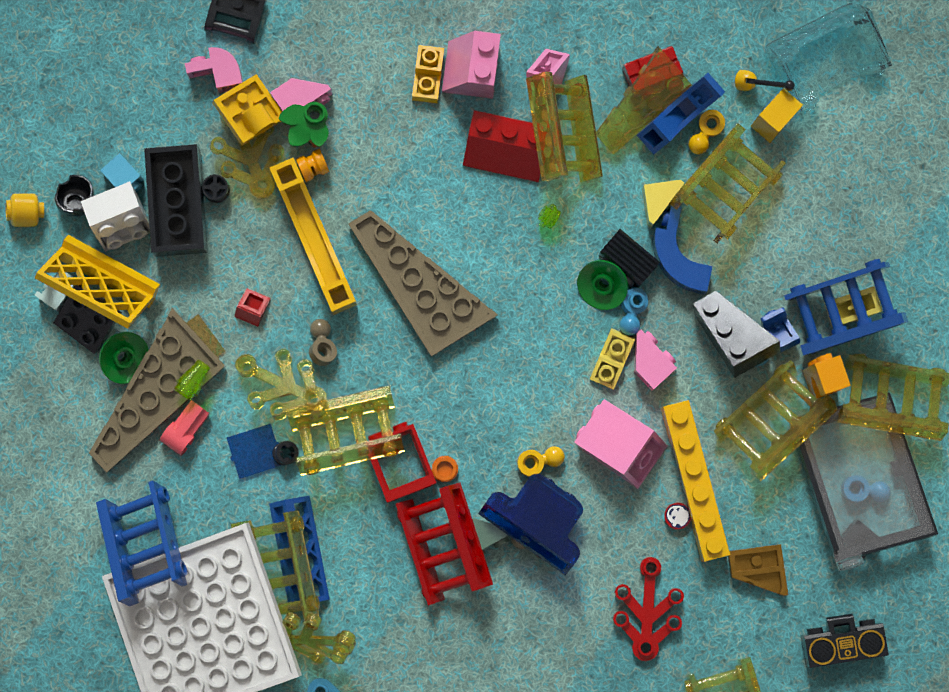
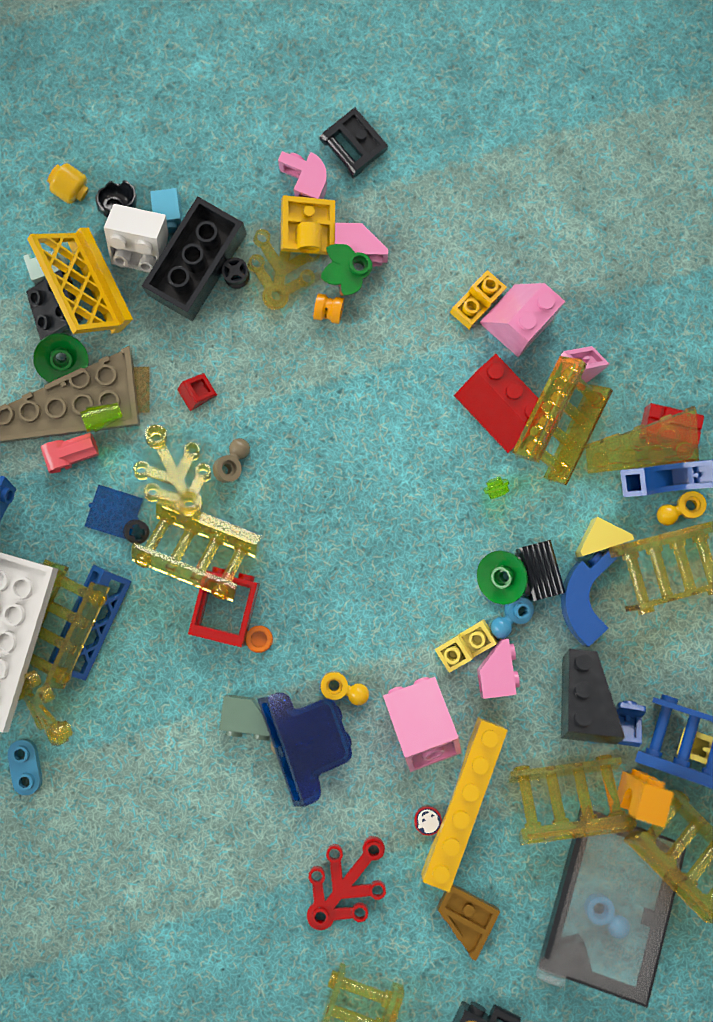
camera: 40 degrees right, 0 degrees up
(313, 236) = (292, 345): yellow arch -> none
(428, 296) = (348, 485): dark tan wing -> none
(465, 535) = (231, 712): red fence -> none

